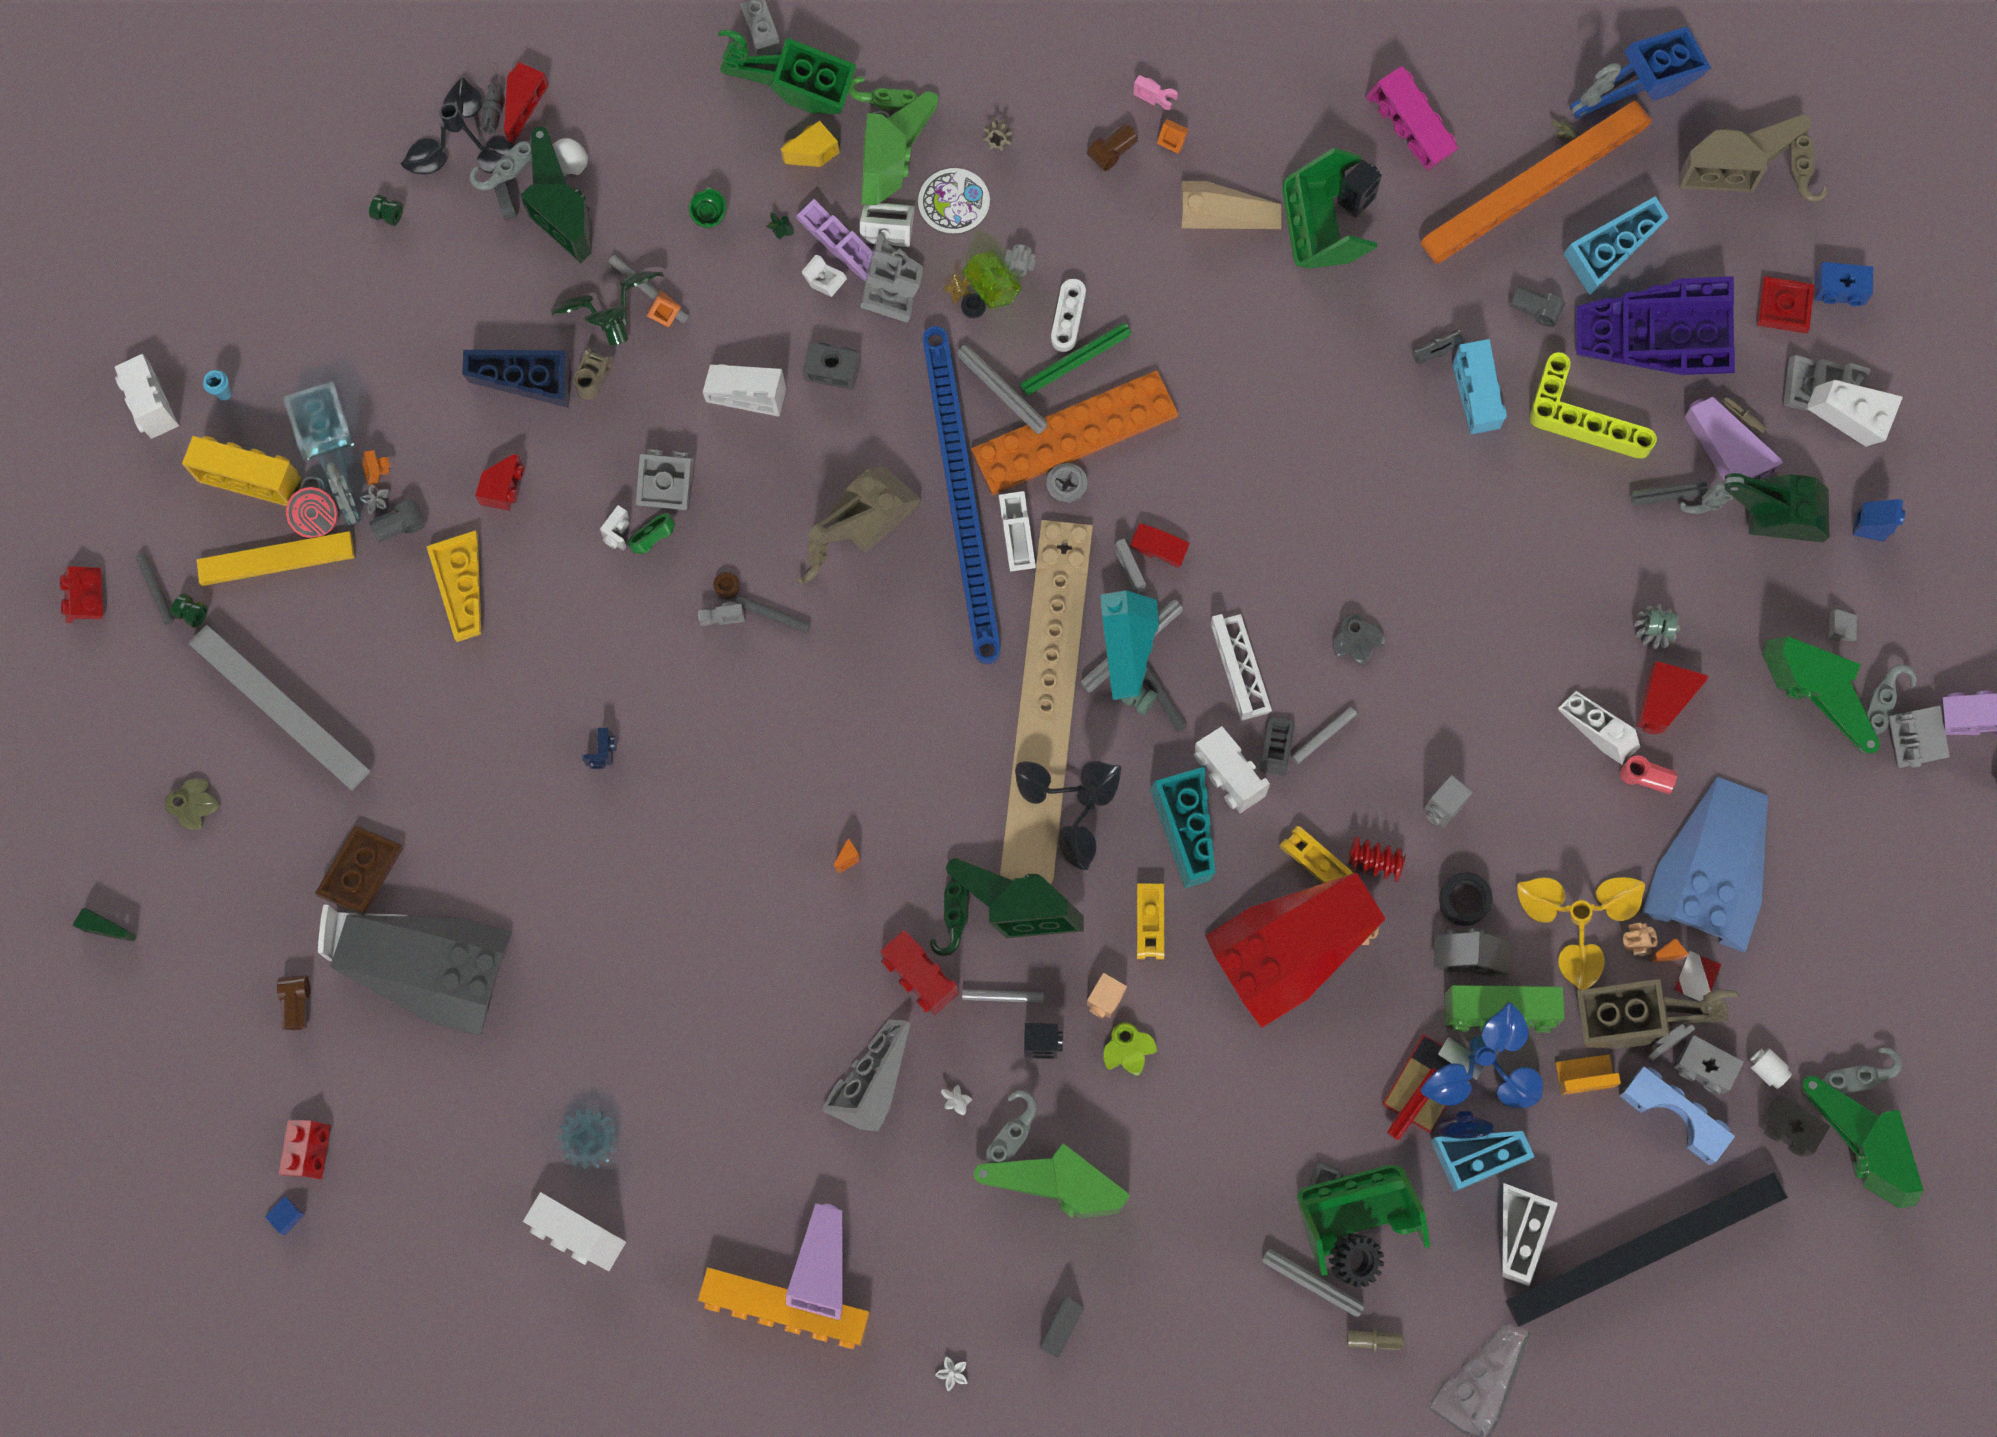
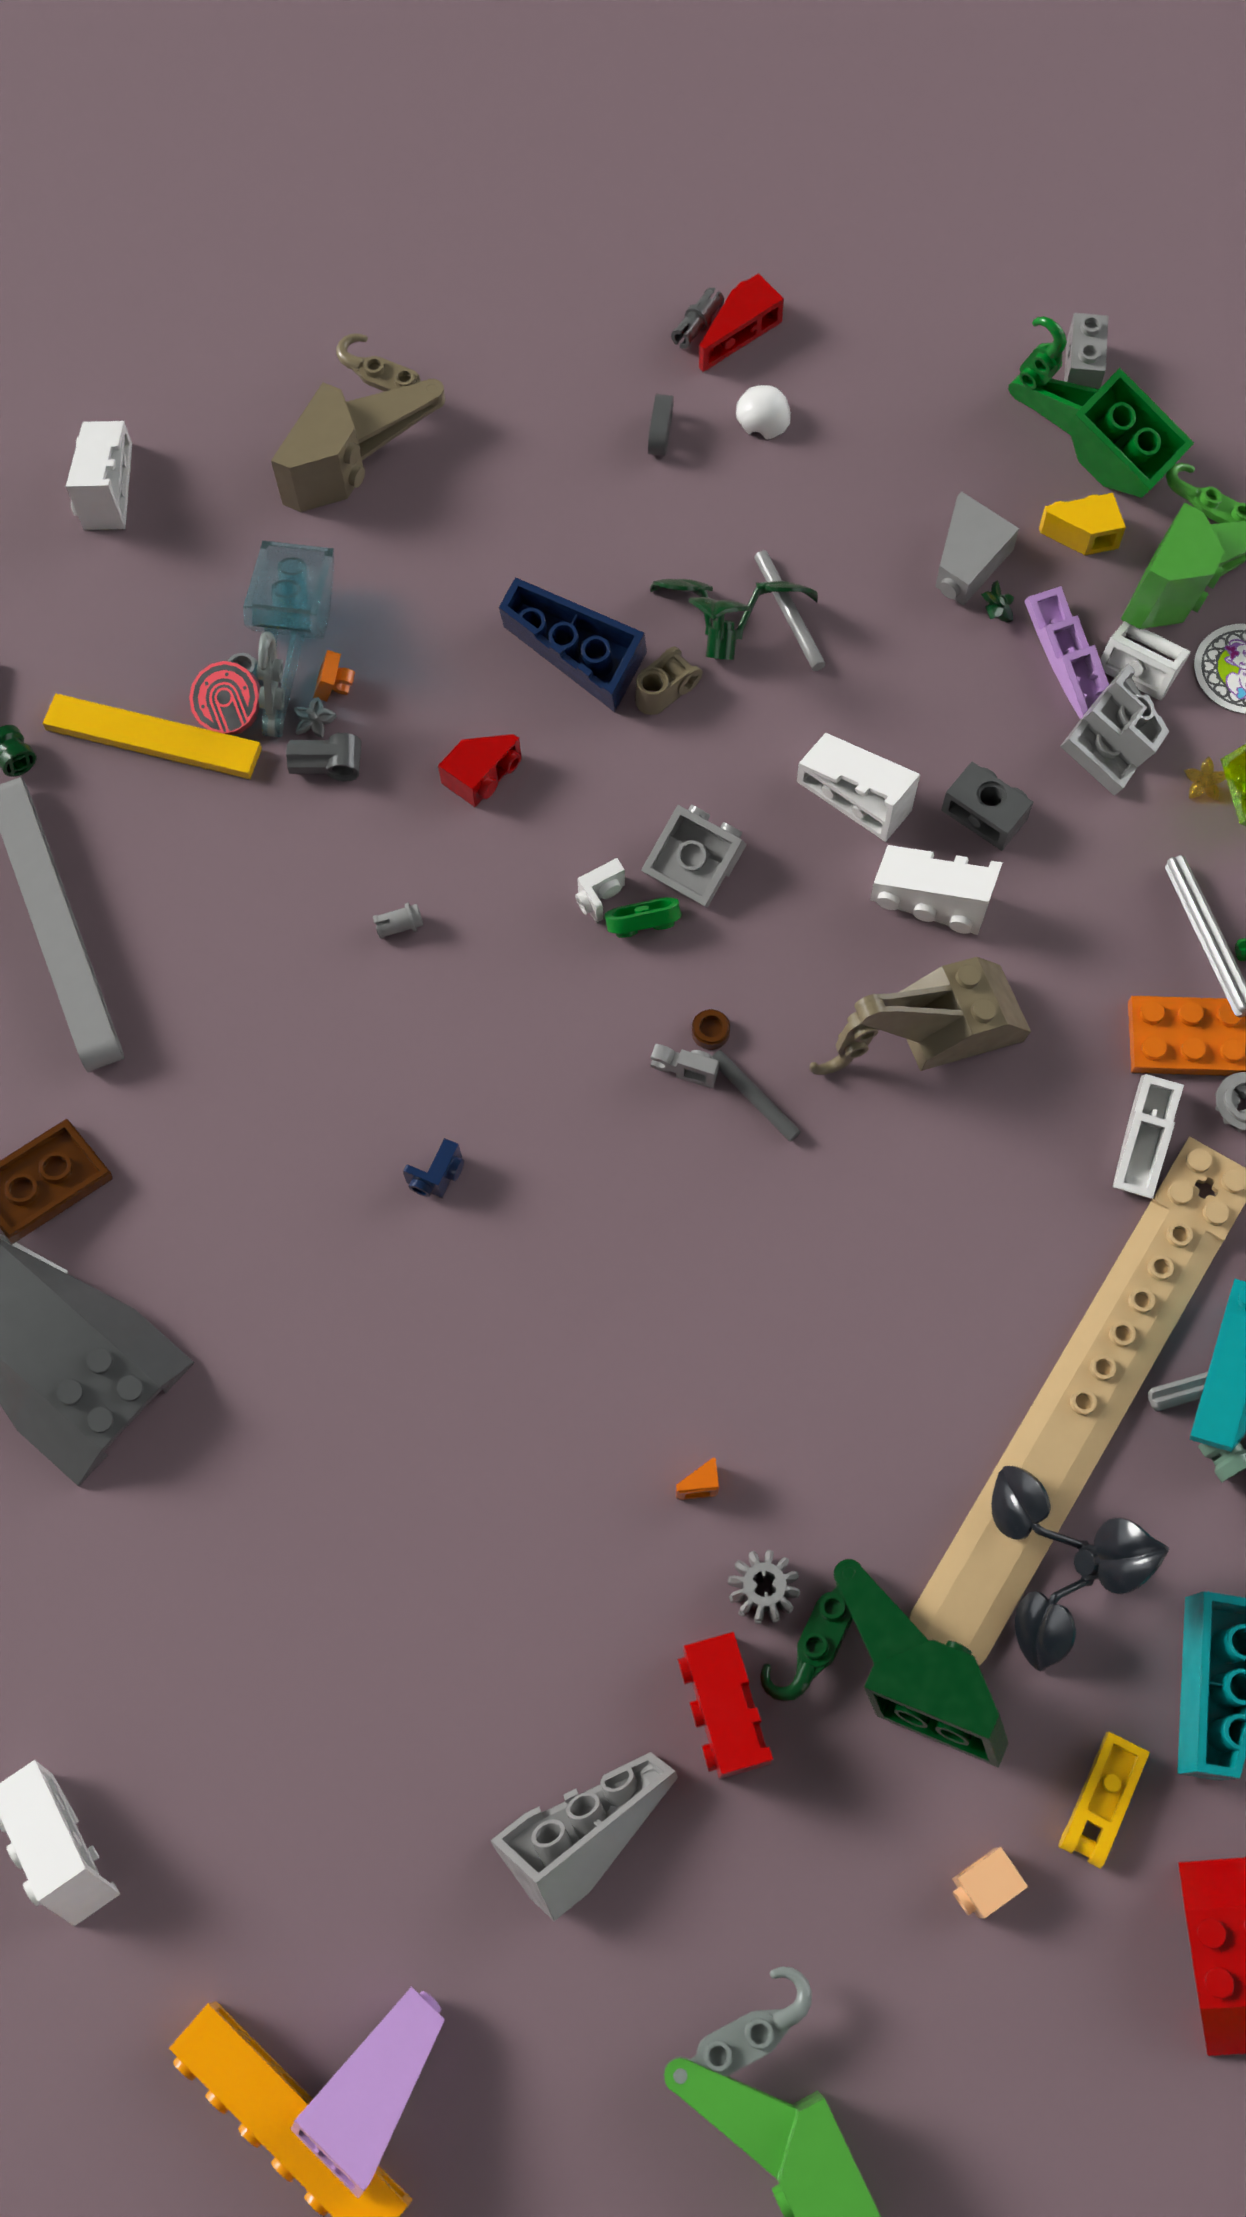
camera: 25 degrees right, 5 degrees down
(217, 384) = (193, 495): medium azure cone -> none
(241, 470) = (164, 606): yellow brick -> none
(293, 300) = (331, 438): none -> dark tan slope
(387, 210) = (503, 378): dark green wheel -> none
(458, 579) = (363, 864): yellow wing -> none
(461, 101) = (668, 298): black plant -> none
(499, 606) = (398, 920): none -> light grey pin
(549, 200) = (716, 445): dark green slope -> none
(587, 1151) = (131, 1725): clear light blue gear -> none
(663, 309) = (797, 641): orange slope -> none
(707, 208) = (914, 542): green hair -> none
(747, 196) = (973, 548): none -> light grey slope
(823, 277) = (1027, 689): white bracket -> none
(823, 435) = (935, 888): none -> white wedge
(920, 893) = (748, 1586): none -> light grey gear
(956, 1100) = (692, 1930): white plant -> none
(961, 495) = (1087, 1059): blue gear -> none
(973, 306) = (1216, 811): black plate -> none
(1002, 996) = (833, 1802): light grey bar -> none
(1042, 1041) = (863, 1907): black brick -> none
(1128, 1053) = (983, 1989): lime plate -> none

